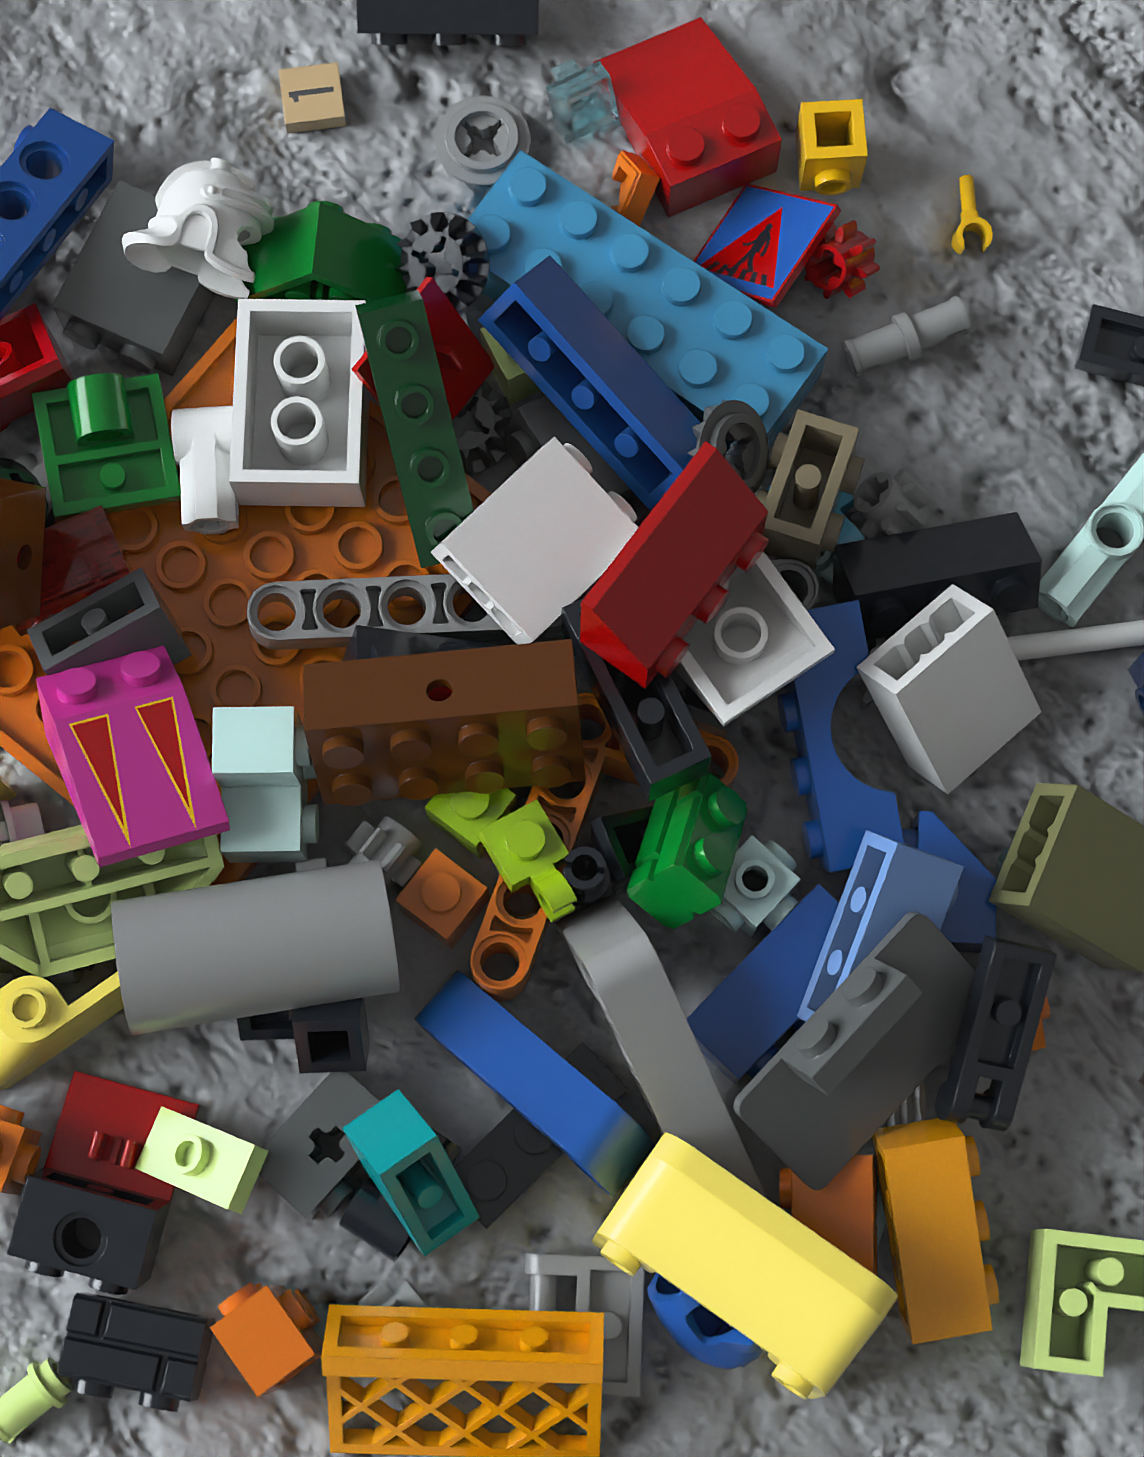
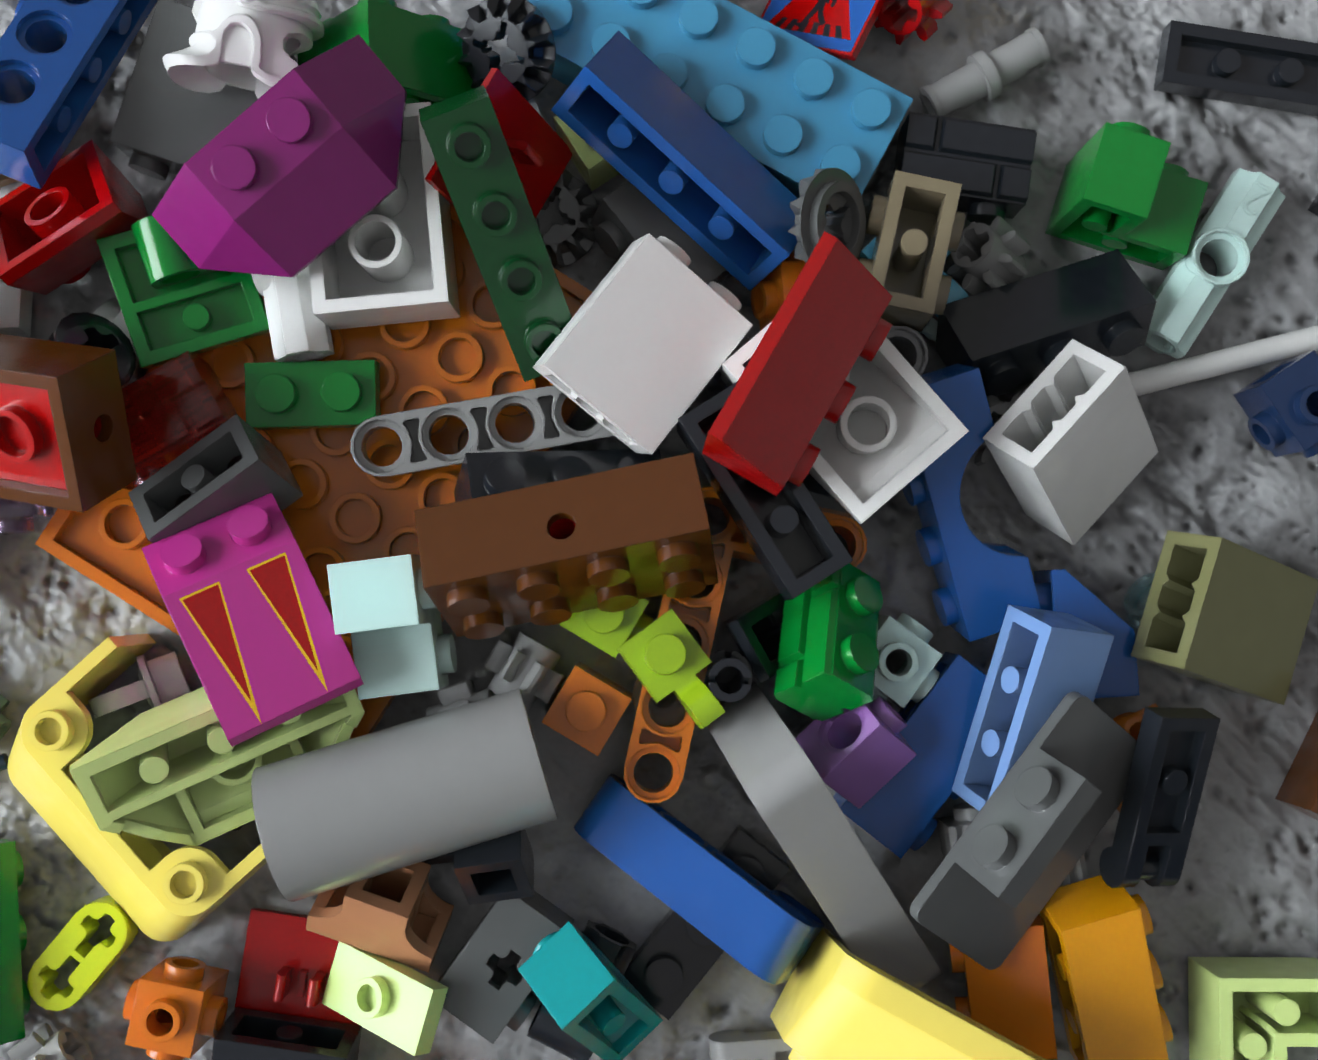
camera: 10 degrees left, 10 degrees up
(210, 562) = (311, 394): none -> green plate
(212, 1076) = (386, 915): none -> nougat brick
(229, 347) = (292, 168): none -> magenta wedge
(707, 959) = (858, 749): none -> medium lavender brick
(892, 415) = (983, 157): none -> black brick
(1030, 469) = (1128, 198): none -> green brick

